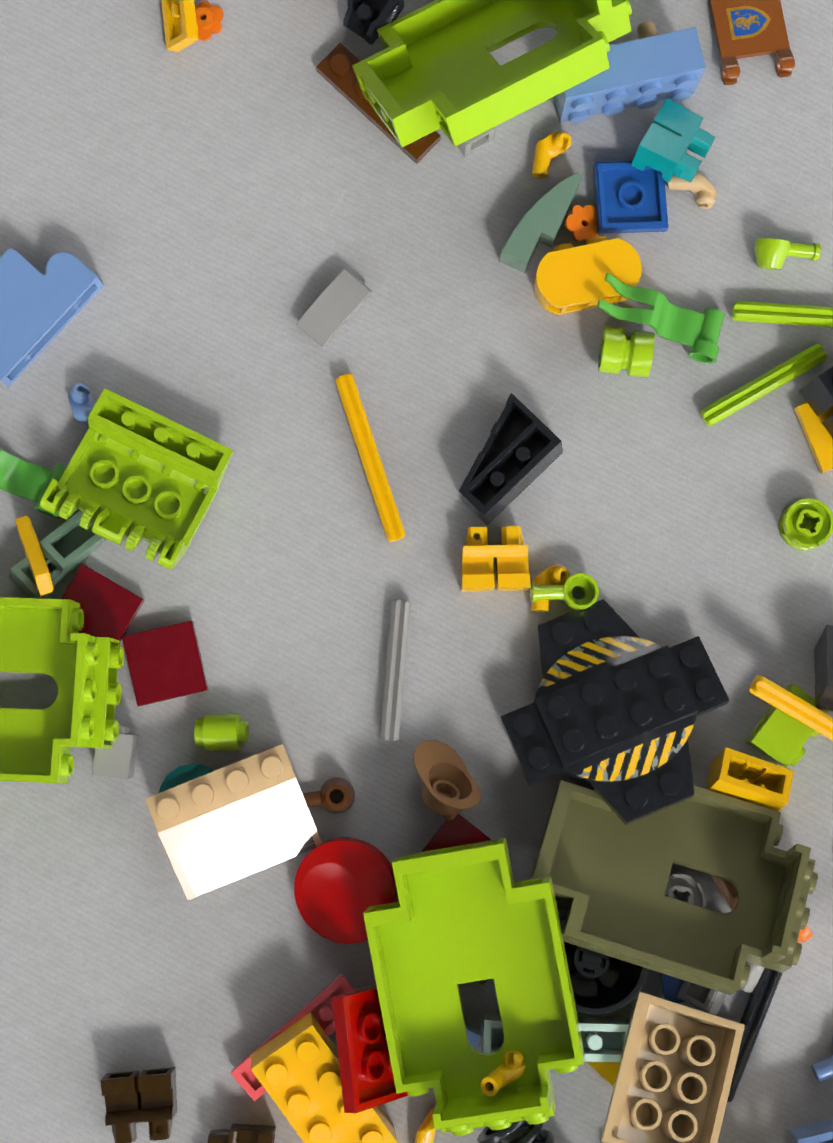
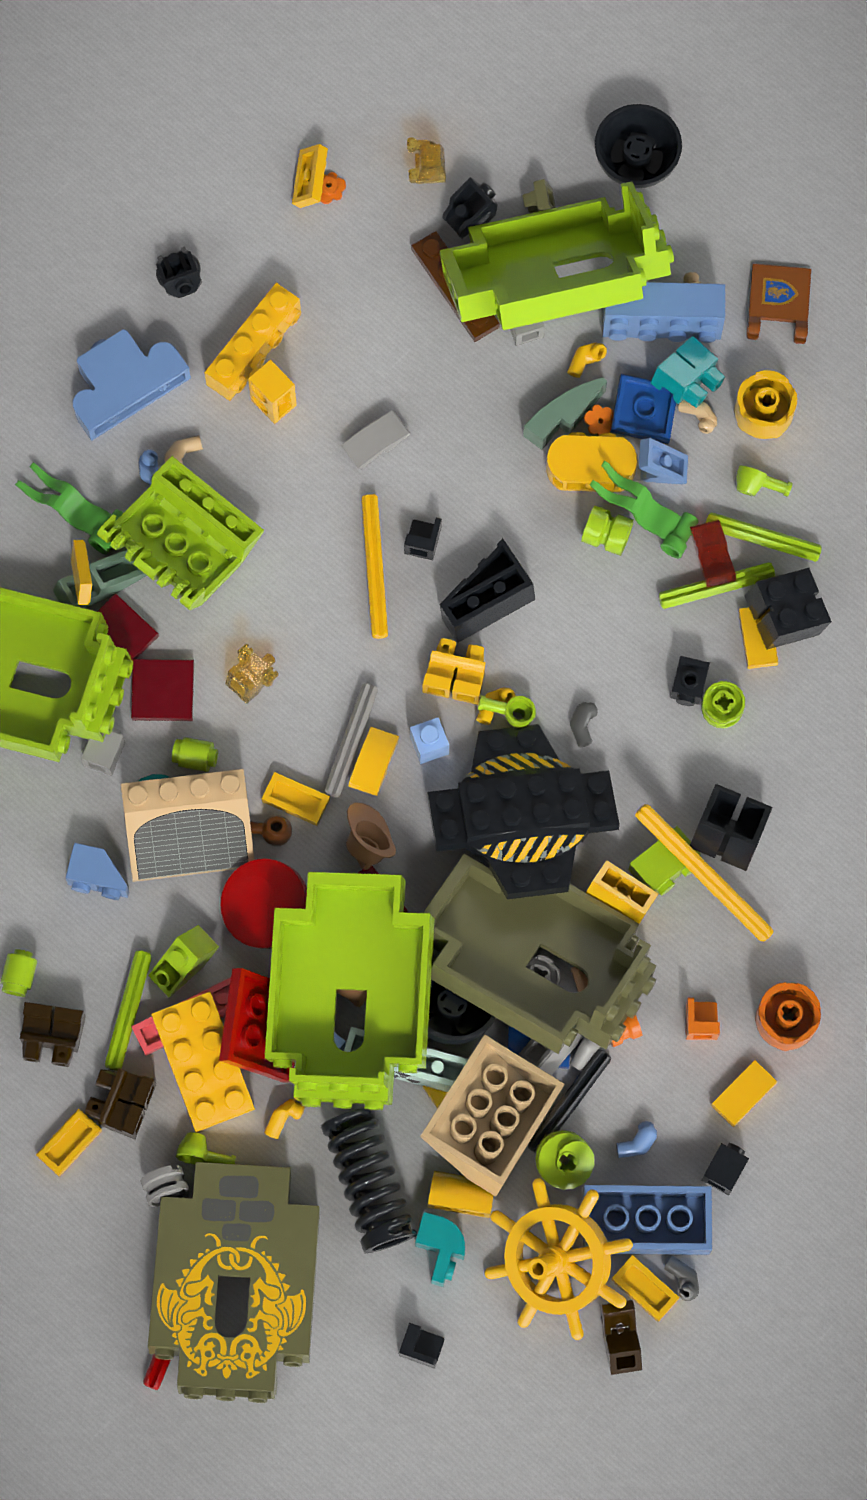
camera: 15 degrees right, 10 degrees down
(57, 164) = (179, 273): none -> black hand
(85, 1041) = (18, 973): none -> lime brick
(113, 371) = (183, 446): none -> tan arm
(141, 899) = (93, 870): none -> medium blue slope
(164, 225) = (253, 341): none -> yellow brick
(200, 280) = (272, 391): none -> yellow brick
(222, 1051) = (128, 1010): none -> lime axle
(262, 621) = (251, 674): none -> clear yellow piece
(270, 979) = (183, 960): none -> lime slope
(349, 754) = (295, 799): none -> yellow tile
(417, 411) = (423, 539): none -> black panel
(427, 689) = (373, 761): none -> yellow slope
(485, 650) = (429, 740): none -> light blue brick
(504, 1073) = (352, 1064): yellow arm -> none
(649, 583) = (579, 722): none -> dark grey arm
(667, 257) = (662, 463): none -> medium blue slope
(751, 496) = (691, 669): none -> black brick
(752, 351) = (712, 553): none -> clear red slope
(762, 1104) = (575, 1149): none -> lime piece
(787, 159) = (764, 421): none -> yellow brick

